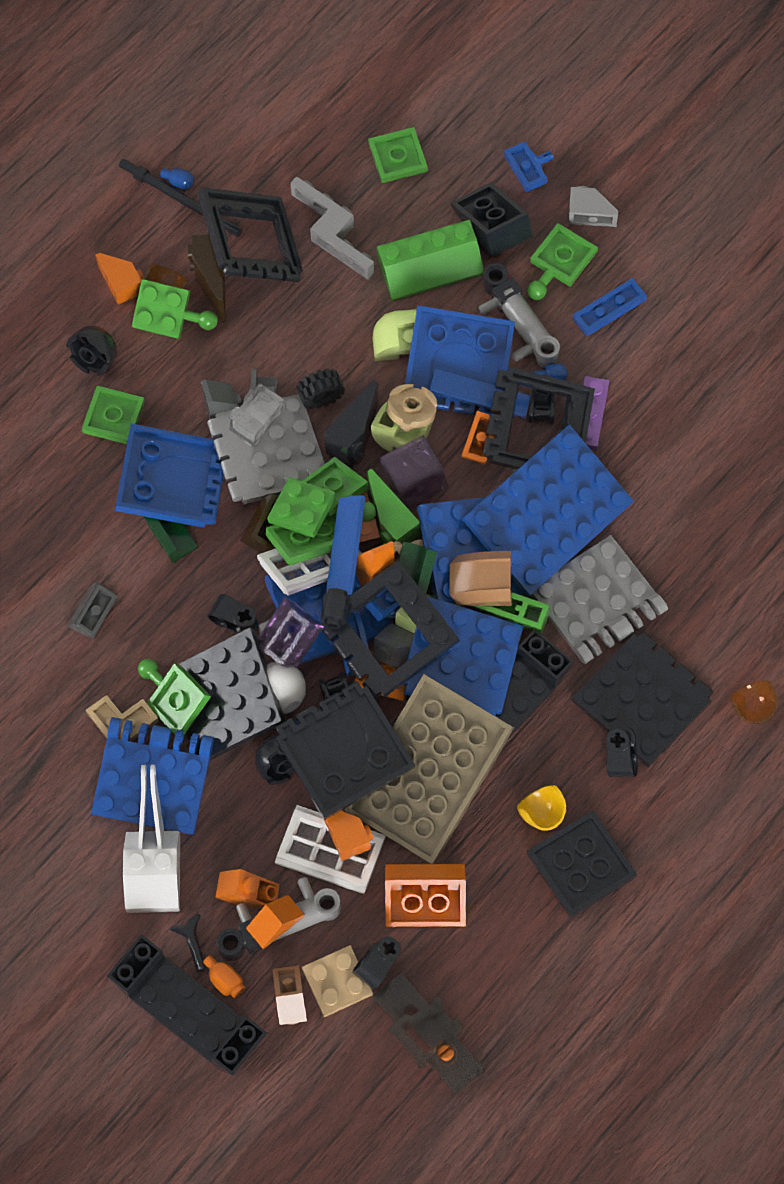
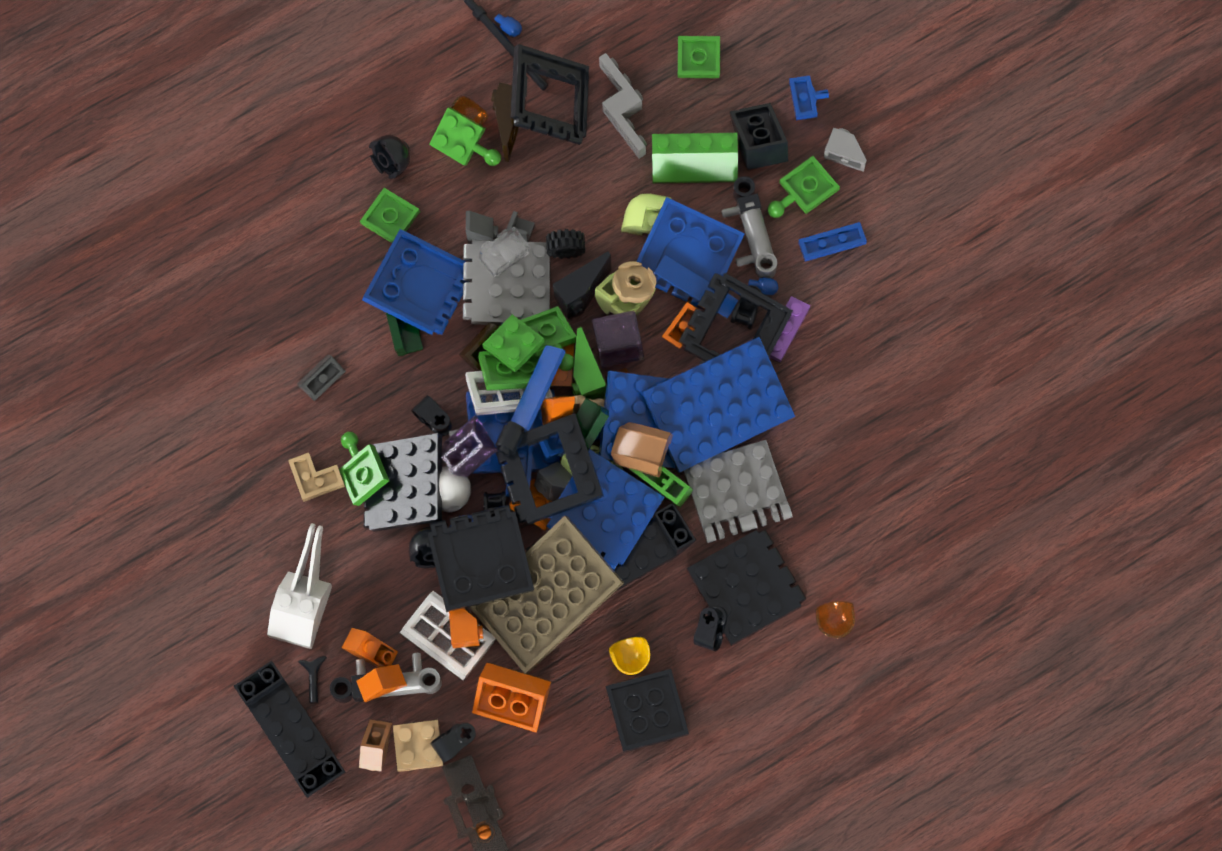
camera: 20 degrees right, 5 degrees up
(120, 277) = (433, 98): orange slope -> none
(178, 776) = (342, 536): blue hinge -> none
(225, 977) = (328, 715): orange plant -> none

